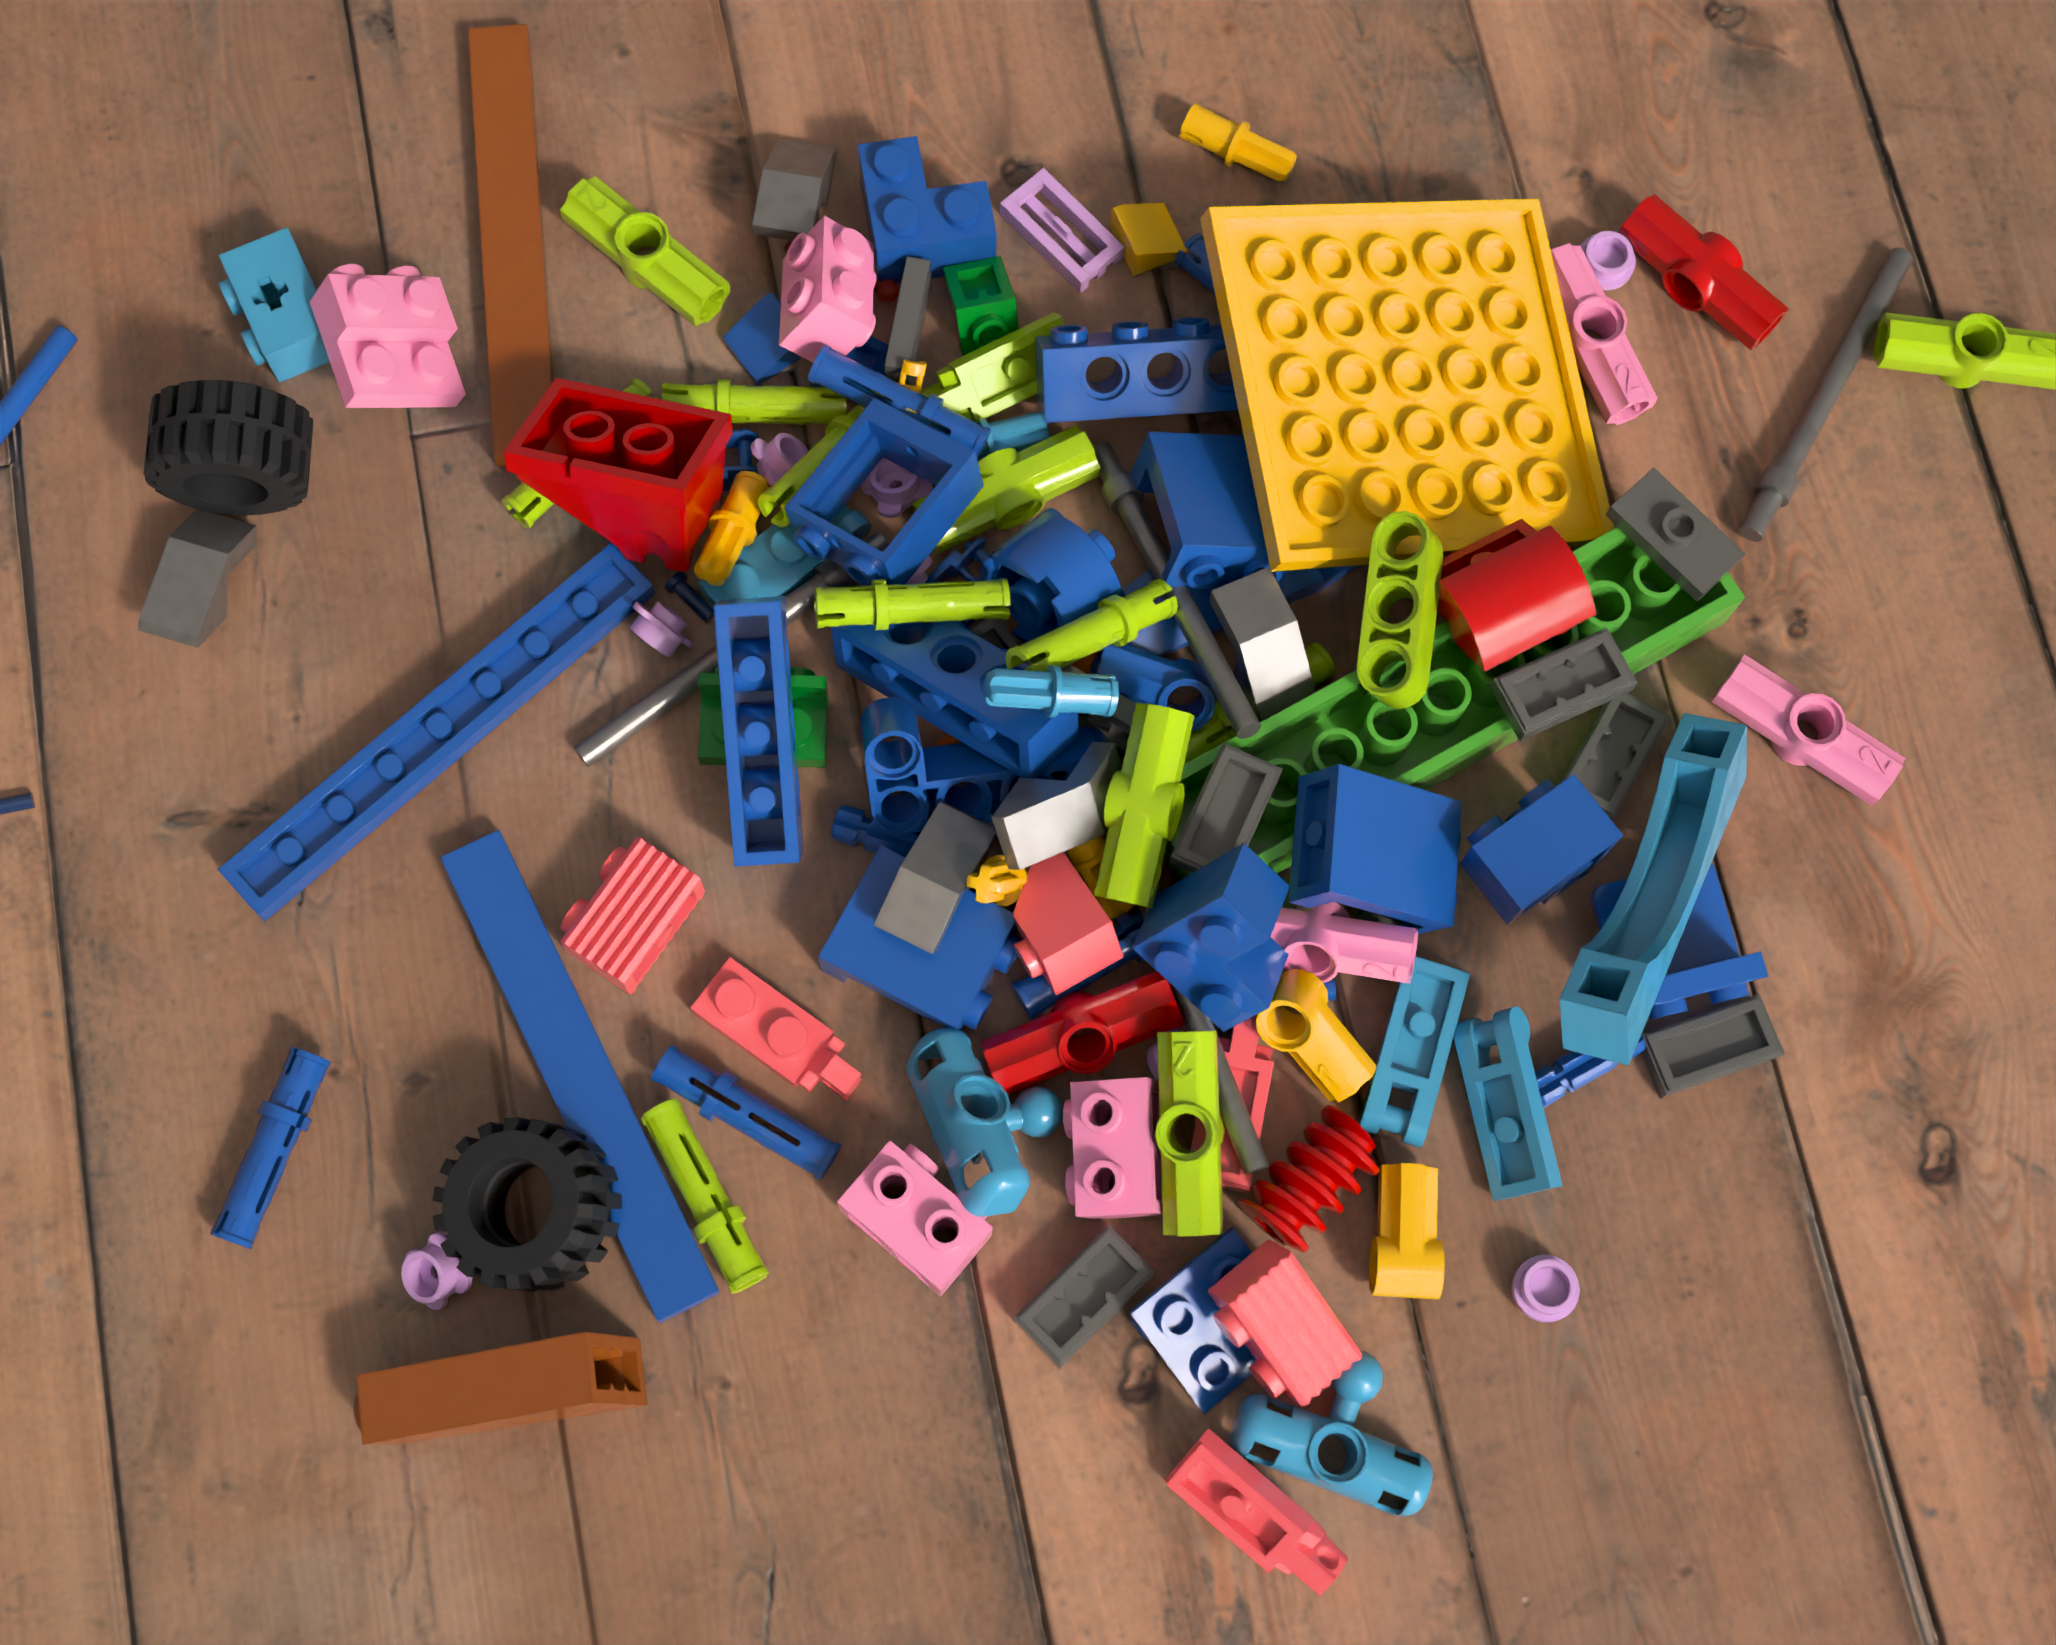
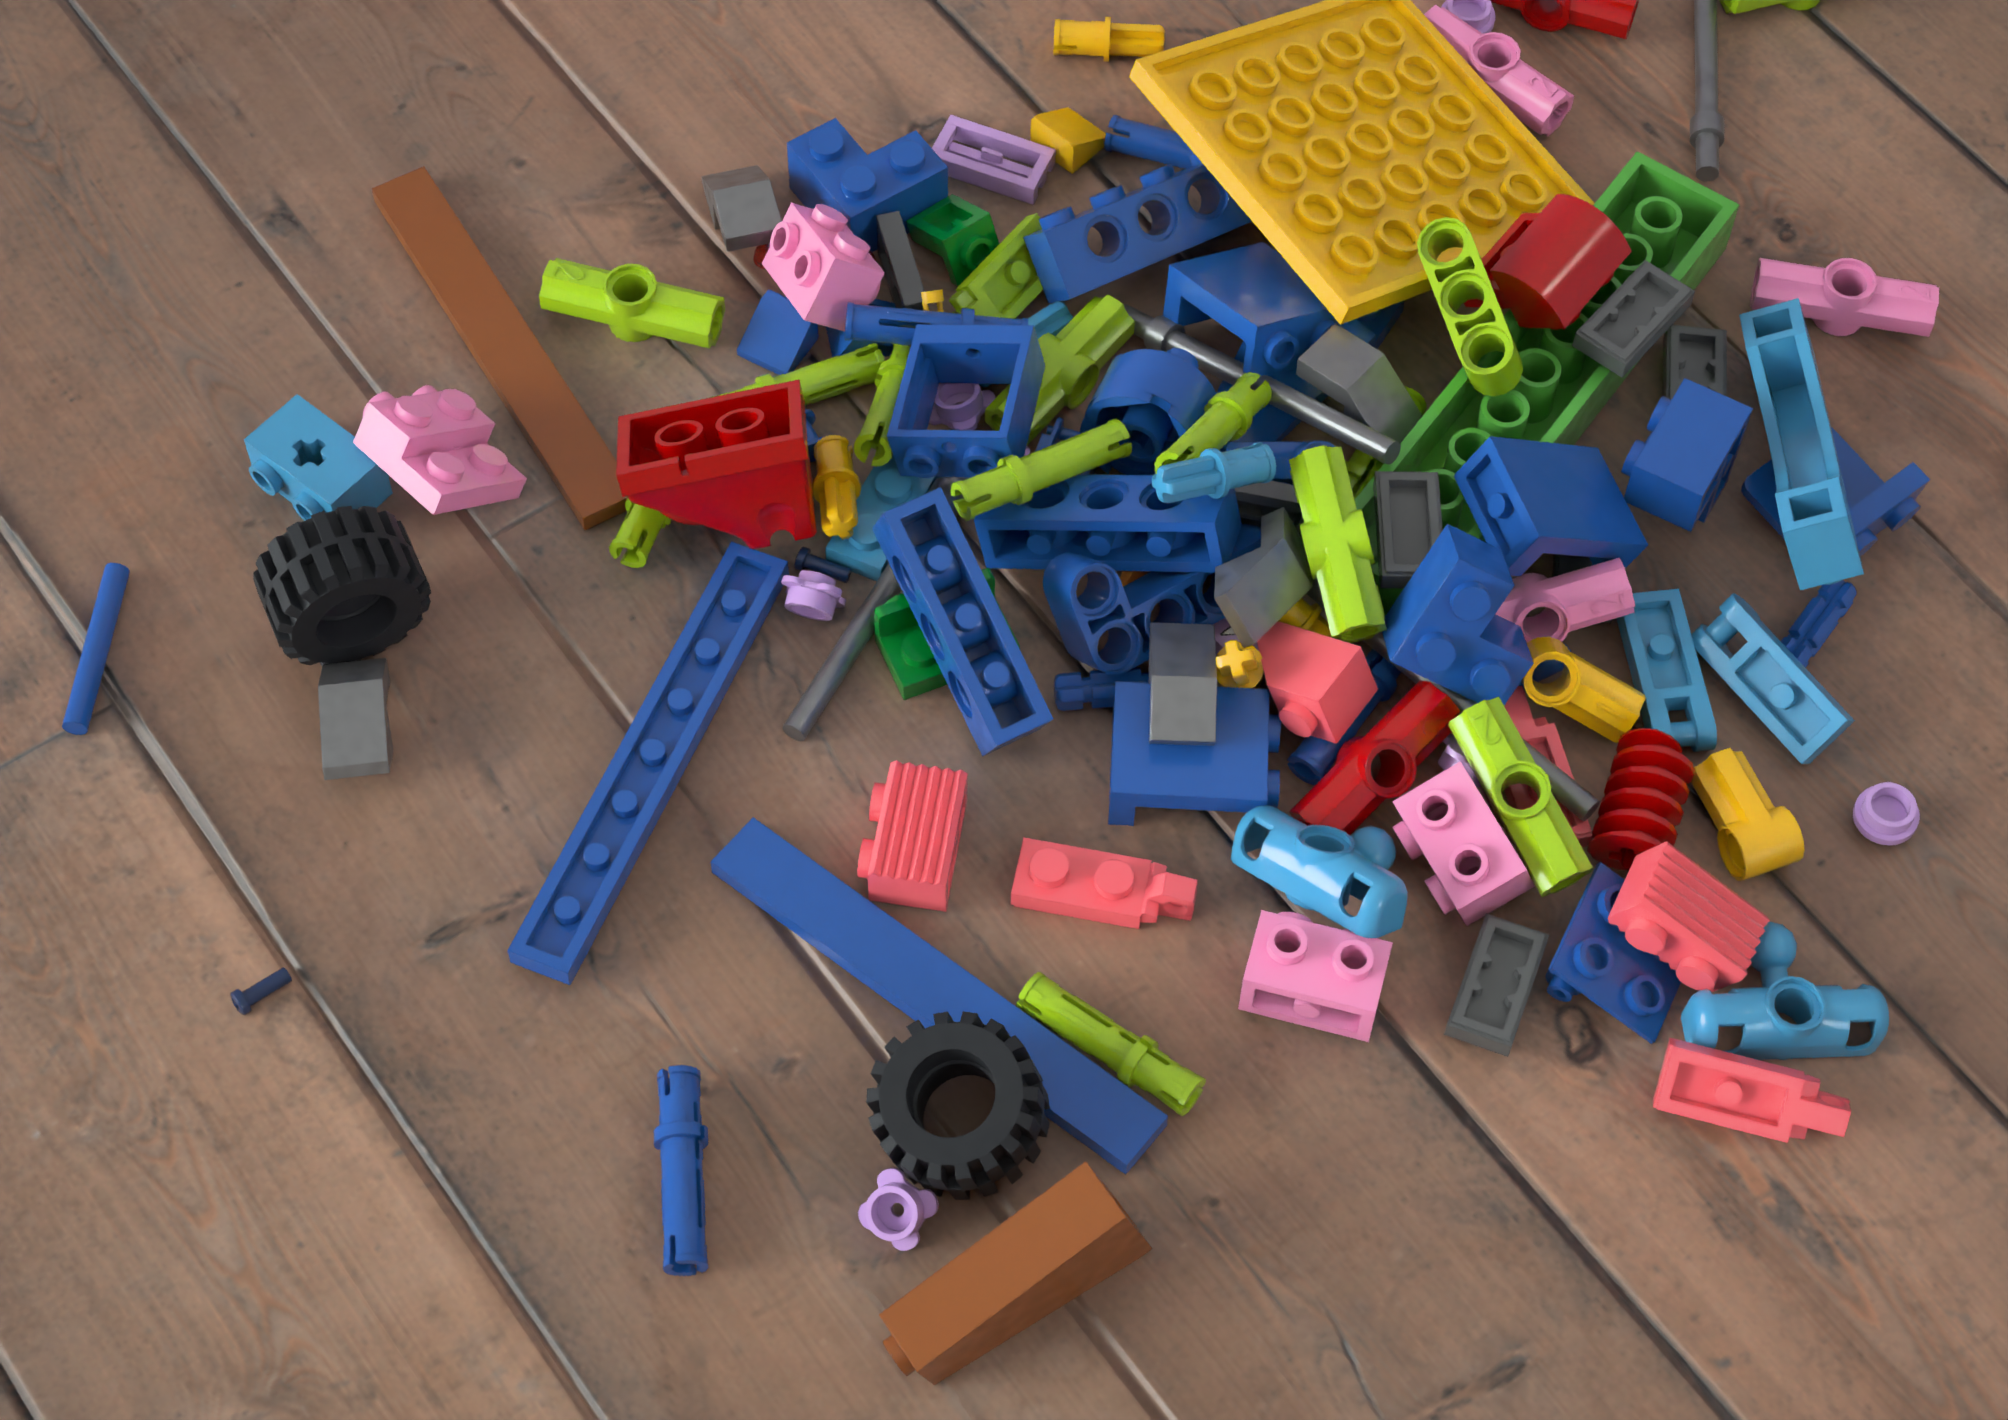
camera: 20 degrees left, 15 degrees down
(680, 1071) = (1109, 958): blue pin -> none
(777, 455) = (844, 419): lavender plate -> none
(1675, 534) = (1656, 176): dark grey plate -> none
(1710, 1046) = (1909, 573): dark grey tile -> none

